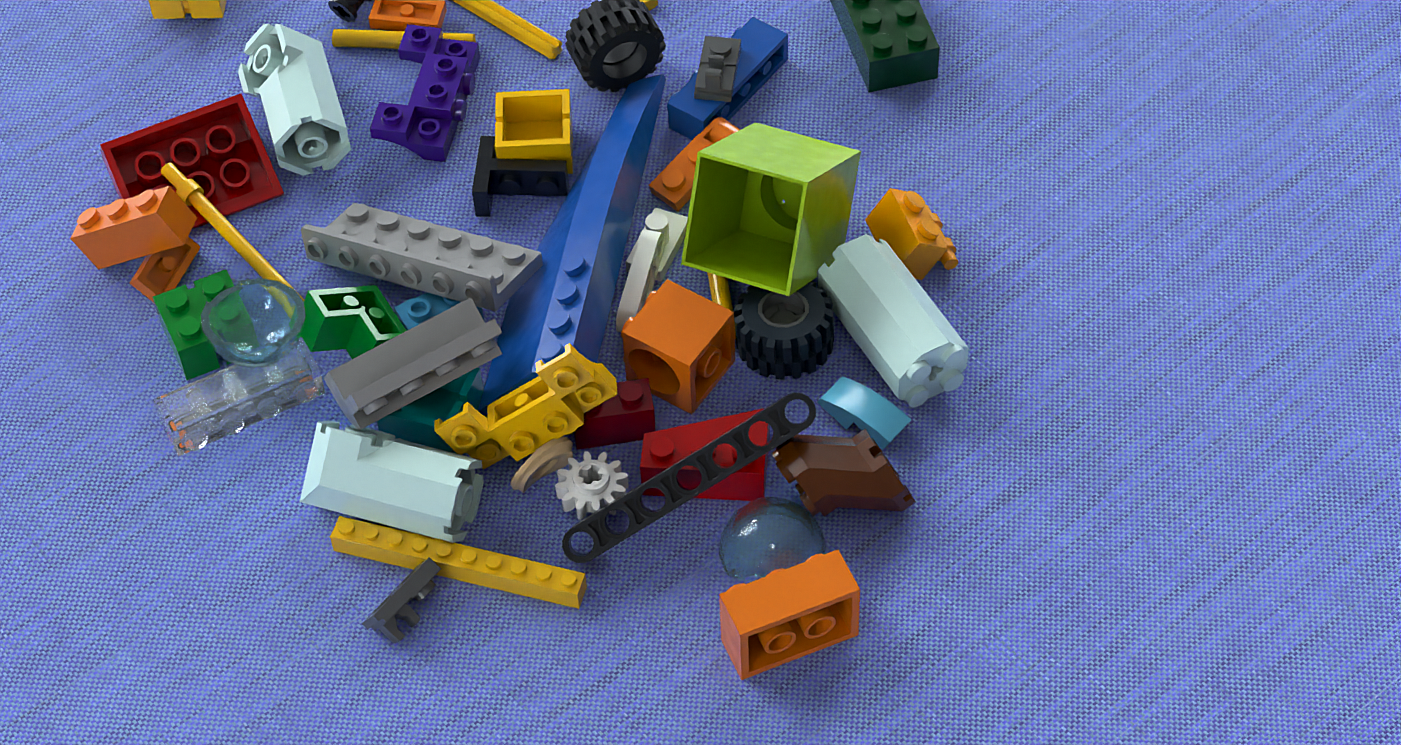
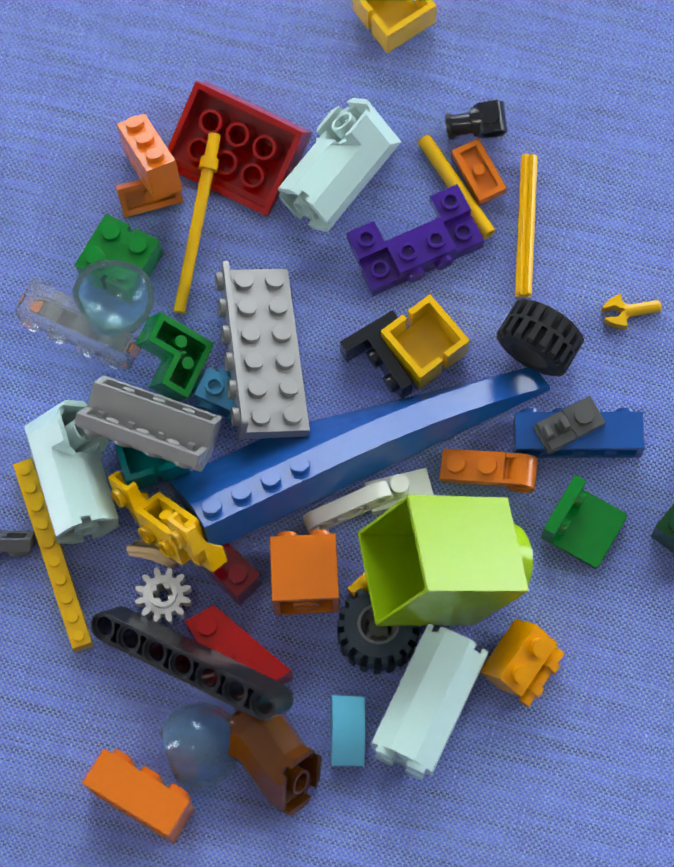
camera: 55 degrees right, 20 degrees up
(819, 117) = (583, 524): none -> green bracket

